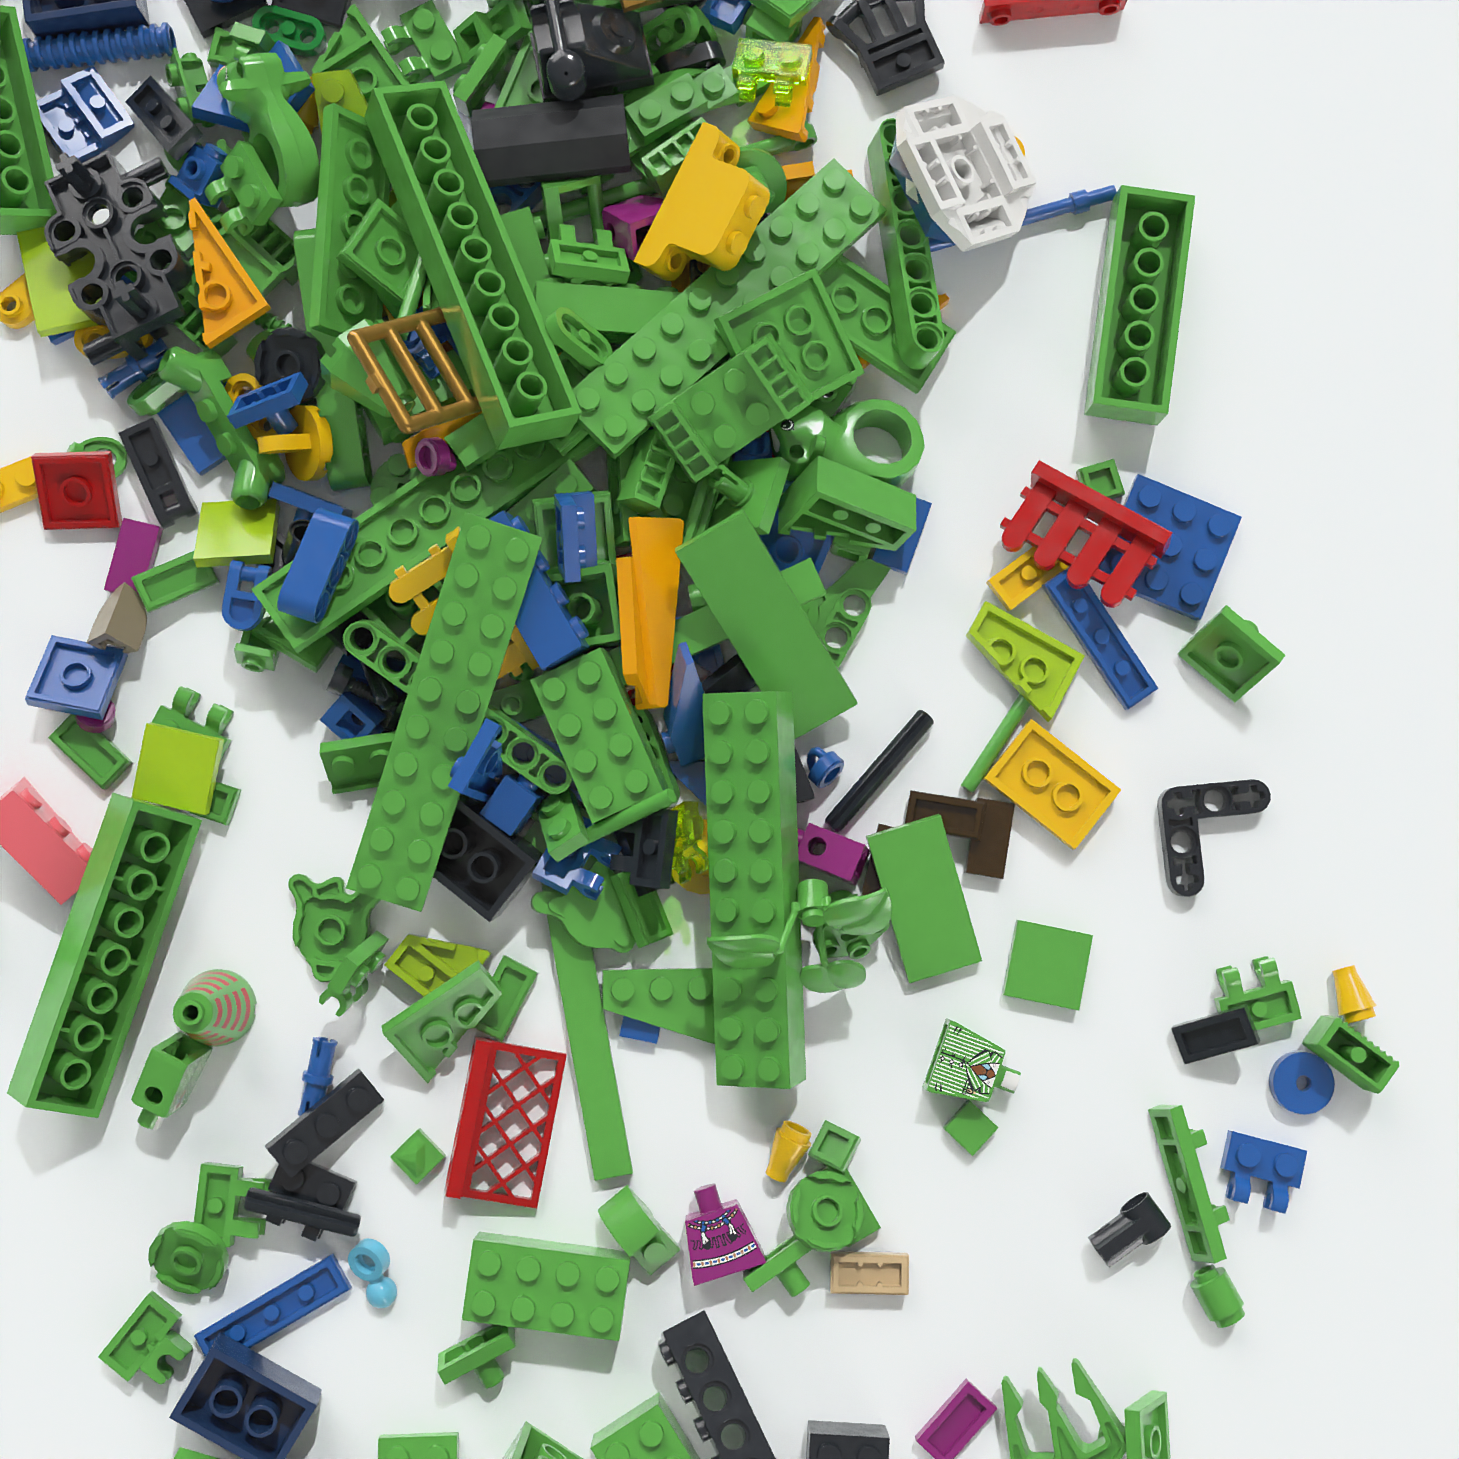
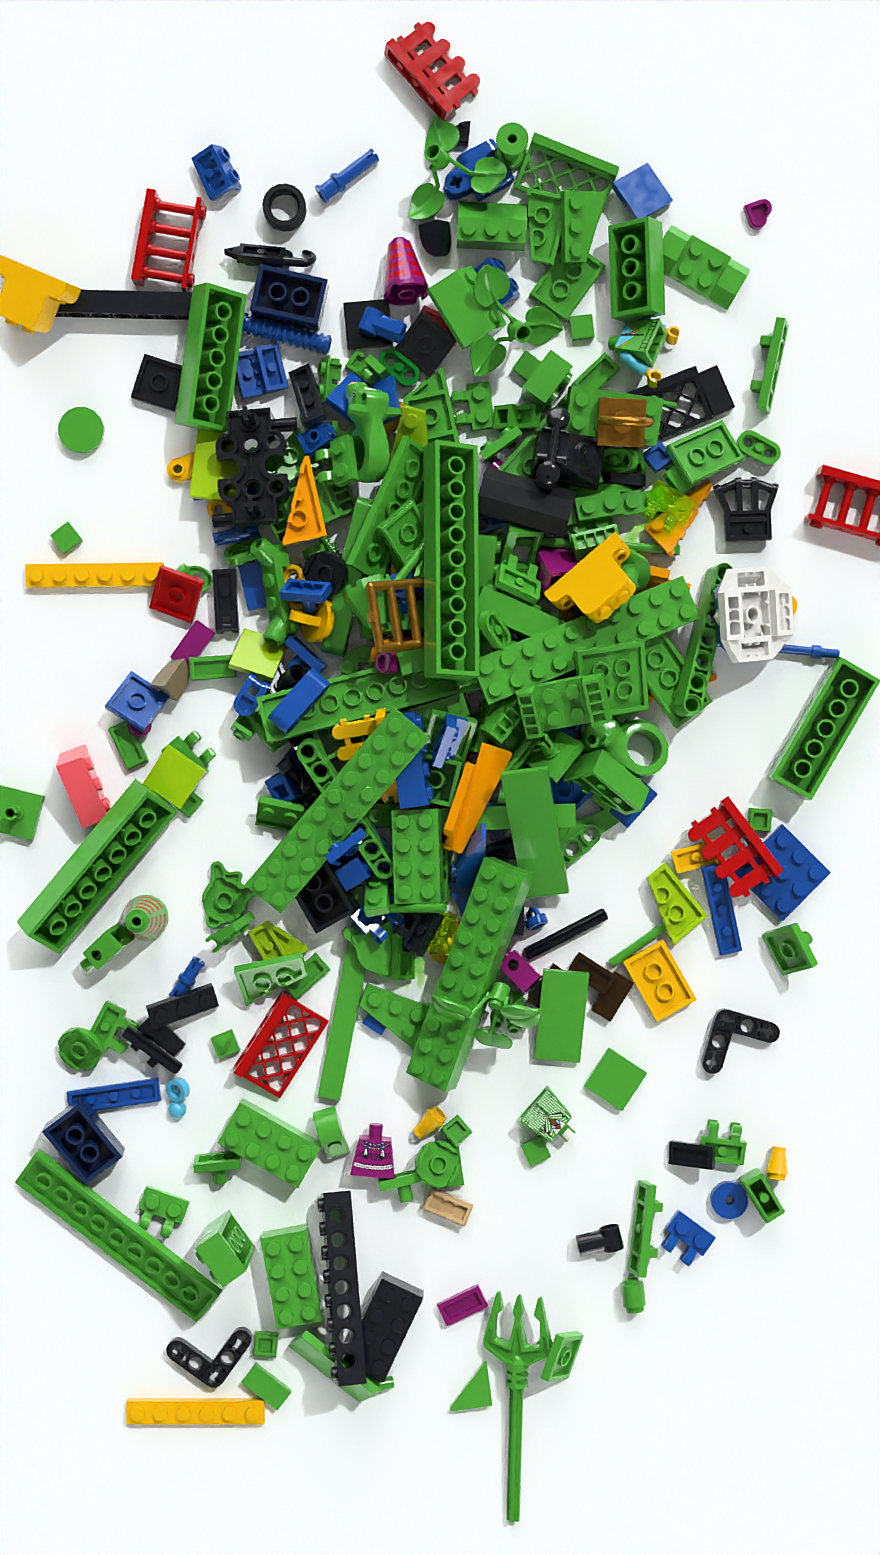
camera: 25 degrees right, 5 degrees up
(146, 1341) = (39, 1084): bright green plate -> none

